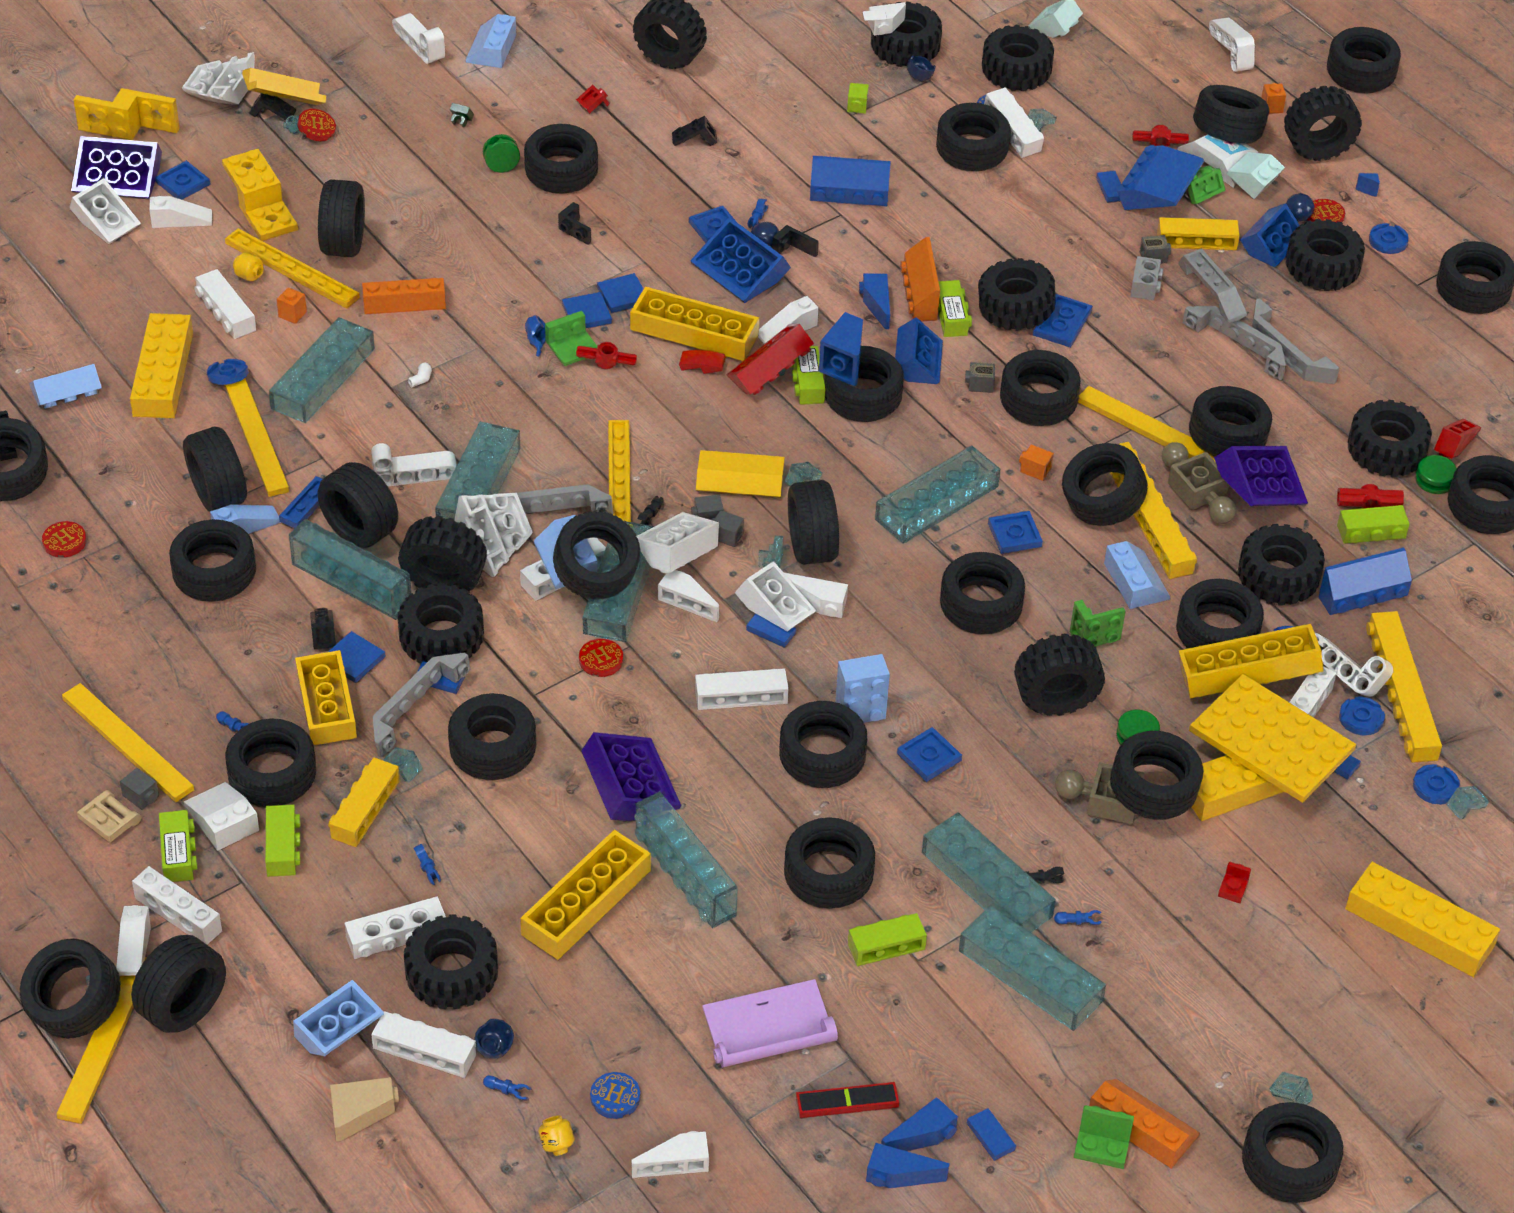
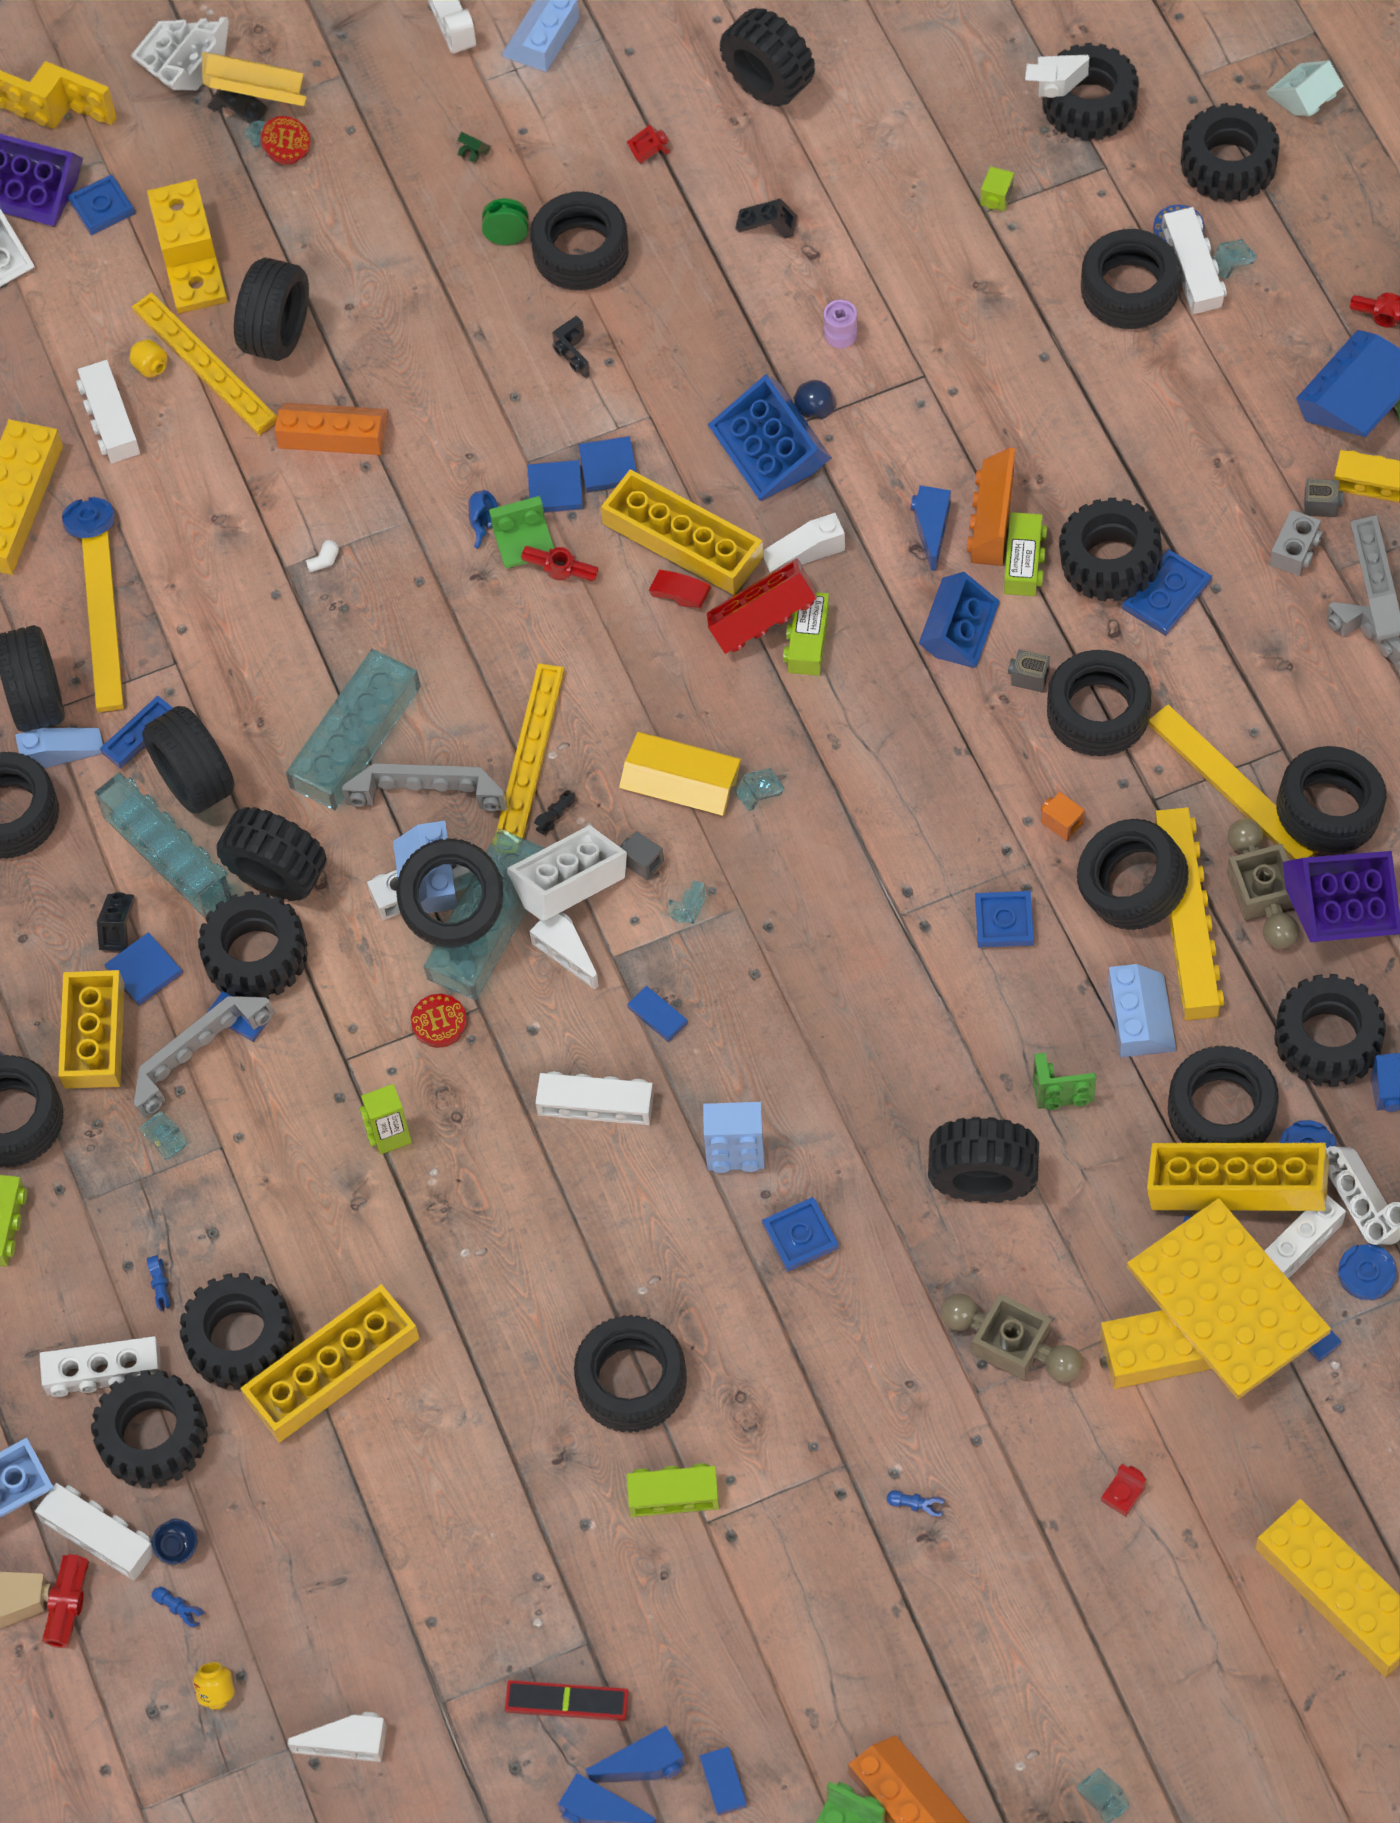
camera: 20 degrees right, 15 degrees up
(174, 212) = (79, 258): white slope -> none
(291, 305) = (188, 426): orange brick -> none
(321, 370) = (202, 533): clear light blue brick -> none
(364, 802) = (105, 1182): yellow brick -> none
(412, 468) = (275, 700): white beam -> none
(412, 1098) = (65, 1601): none -> red piece
(486, 714) = (266, 1086): black tyre -> none
(499, 523) = (349, 814): white wedge -> none
(502, 859) = (229, 1297): none -> black tyre
(583, 715) = (384, 1119): none -> lime brick
(615, 1095) = (298, 1640): blue tile -> none
(626, 772) = (427, 1202): dark purple slope -> none
(686, 860) = (456, 1339): clear light blue brick -> none
(707, 506) = (623, 822): dark grey brick -> none
(709, 222) = (751, 364): blue tile -> none
(757, 213) = (814, 361): blue piece -> none
(769, 1023) = (501, 1579): lavender door -> none
(771, 186) = (840, 323): none -> lavender wheel
(775, 597) = (671, 974): white slope -> none
(790, 236) = (840, 406): black bracket -> none
(813, 522) = (740, 876): black tyre -> none
(825, 596) = (732, 977): white slope -> none
(825, 719) = (665, 1163): black tyre -> none
(842, 349) = (845, 620): blue slope -> none
(850, 180) = (944, 331): blue slope -> none
(868, 404) = (872, 627): black tyre -> none
(920, 68) = (1095, 149): dark blue hair -> none
(937, 494) = (918, 848): clear light blue brick -> none
(977, 615) = (931, 973): black tyre -> none
(987, 872) = (820, 1425): clear light blue brick -> none
(1032, 967) = (836, 1565): clear light blue brick -> none
(1050, 875) = (904, 1436): black piece -> none
(1109, 185) = (1295, 377): blue tile -> none
(1135, 722) = (1071, 1246): green head -> none
(1151, 799) = (1066, 1294): black tyre -> none

